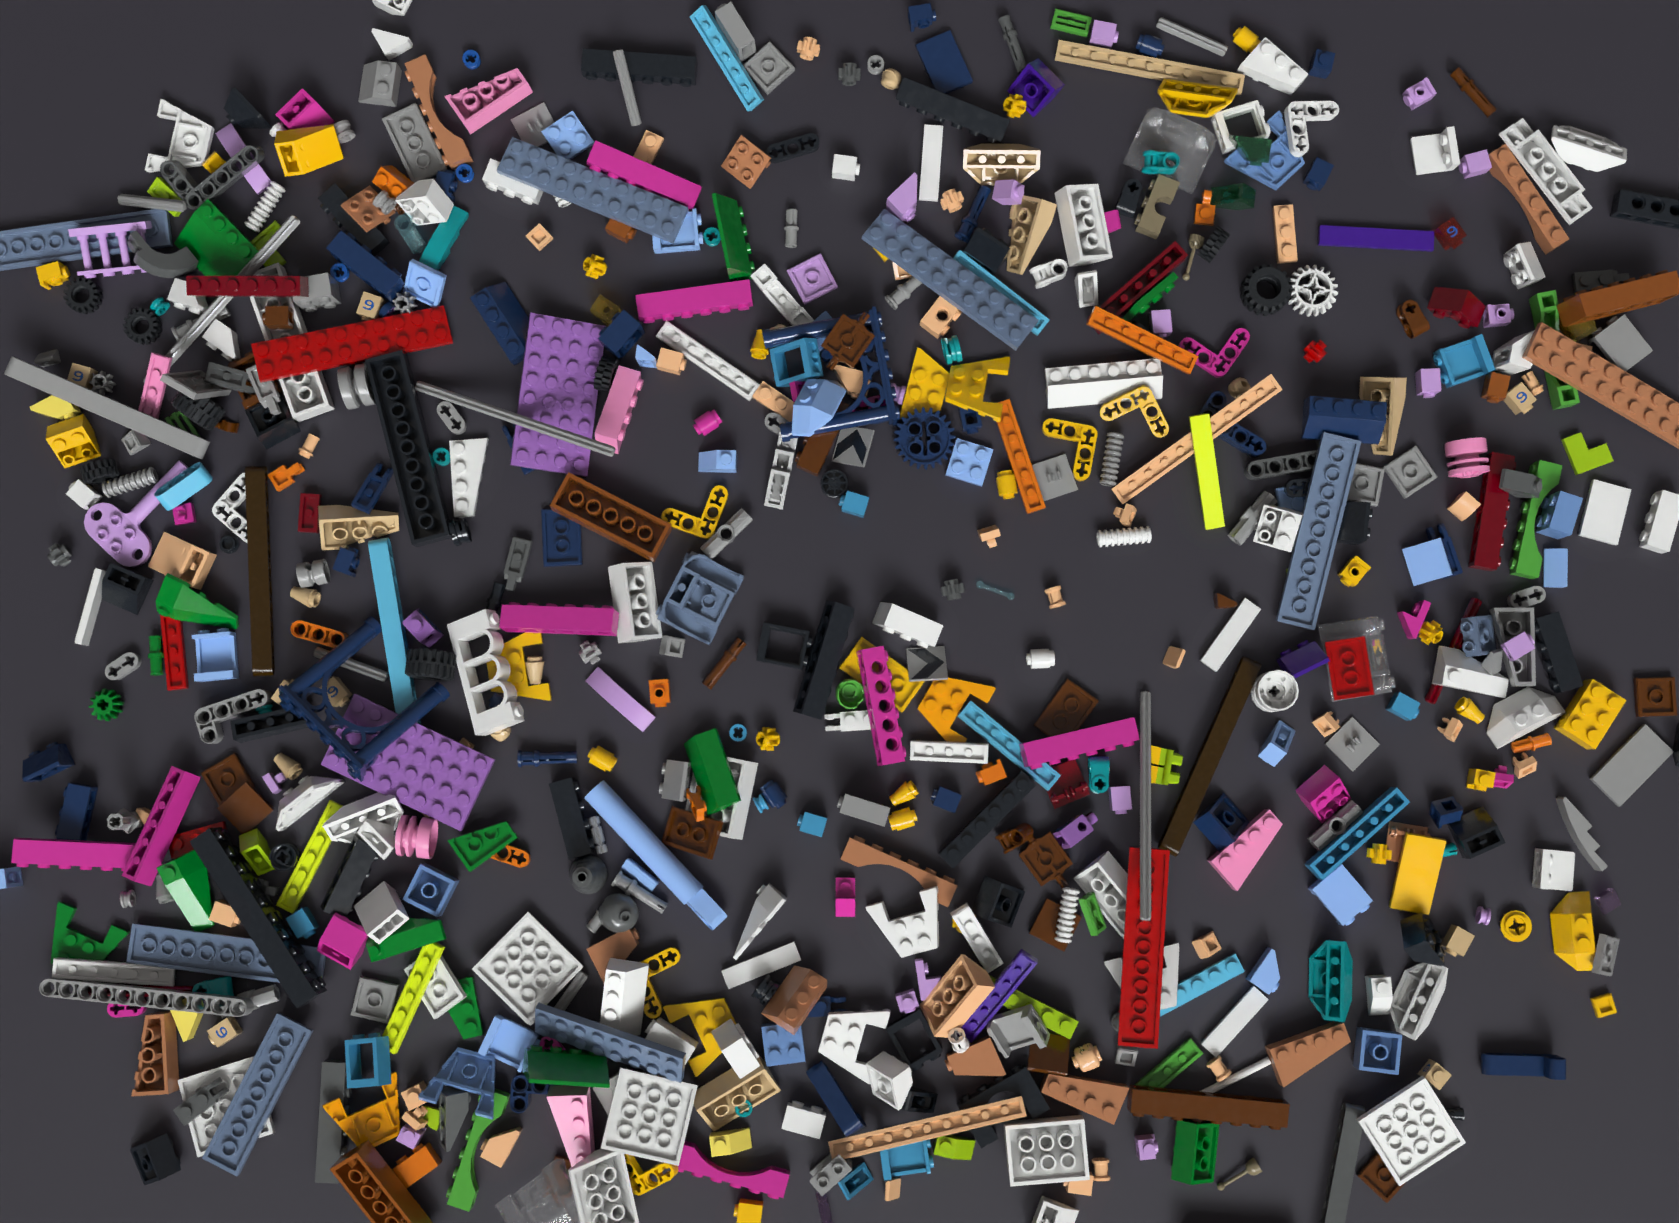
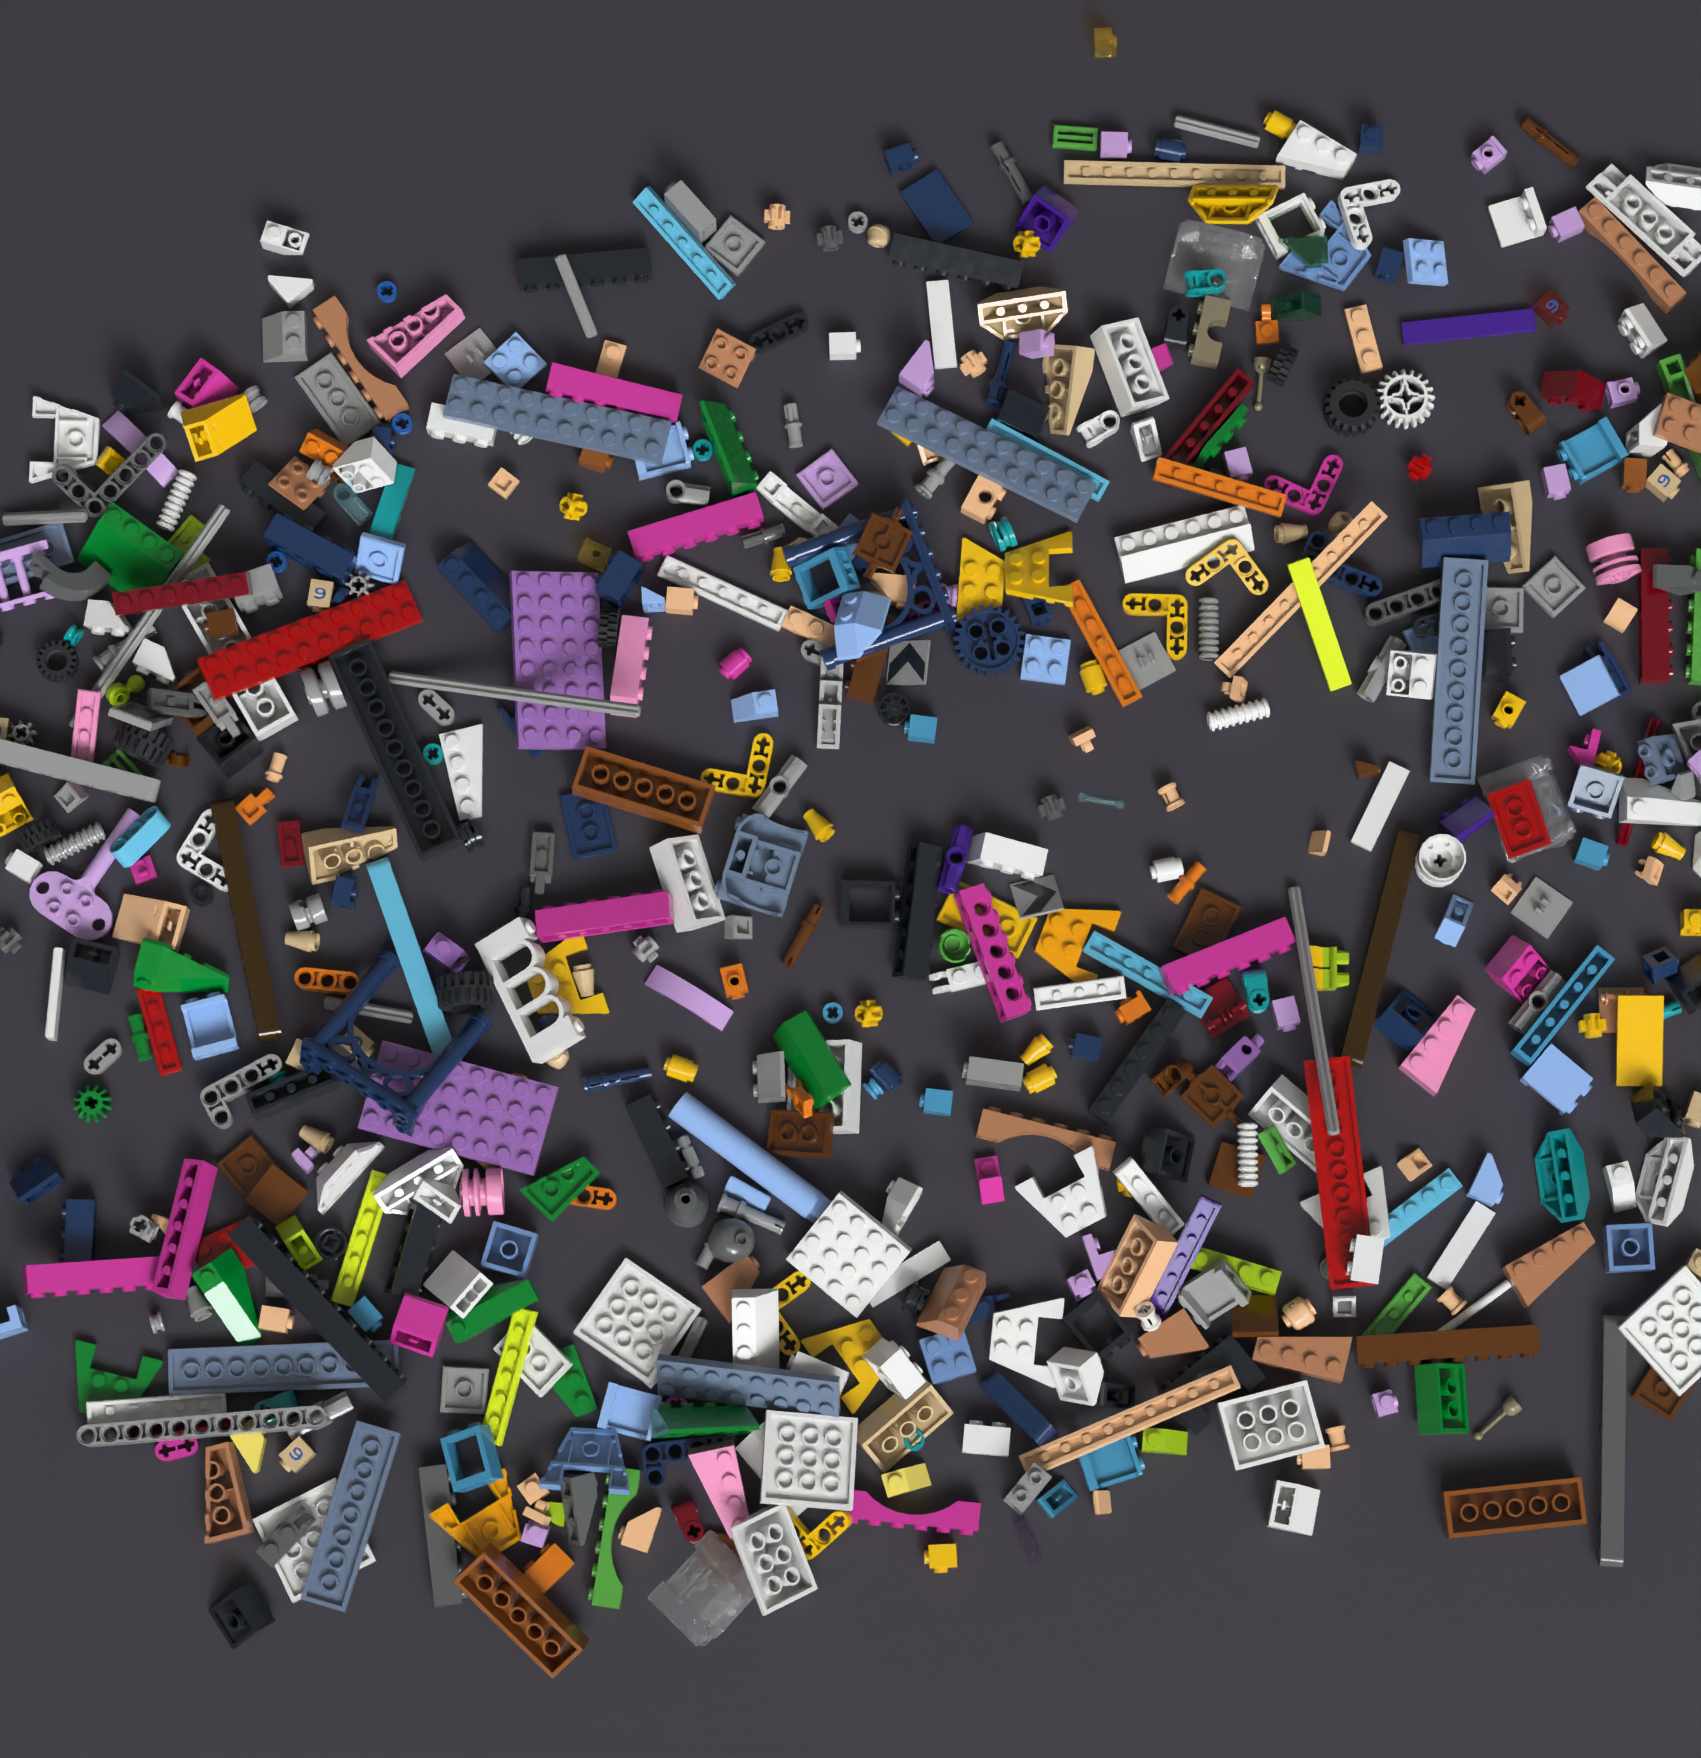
camera: 15 degrees left, 5 degrees down
(162, 189) = (53, 500): lime plate -> none
(203, 355) = (134, 684): none -> lime plate
(541, 1142) = (687, 1517): none -> dark red piece
(695, 271) = (691, 493): none -> light grey piece
(715, 943) = (849, 1254): none -> white plate
(750, 318) = (763, 536): none -> dark grey axle
(754, 572) = (820, 827): none -> yellow cone
(868, 610) = (953, 871): none -> dark purple piece
(1055, 672) = (1186, 882): none -> orange pin
(1153, 1027) = (1366, 1258): none -> white brick
(1194, 388) = (1287, 533): none -> tan cone
(1350, 176) = (1425, 262): none -> light blue plate
(1417, 654) = (1595, 791): none -> plate

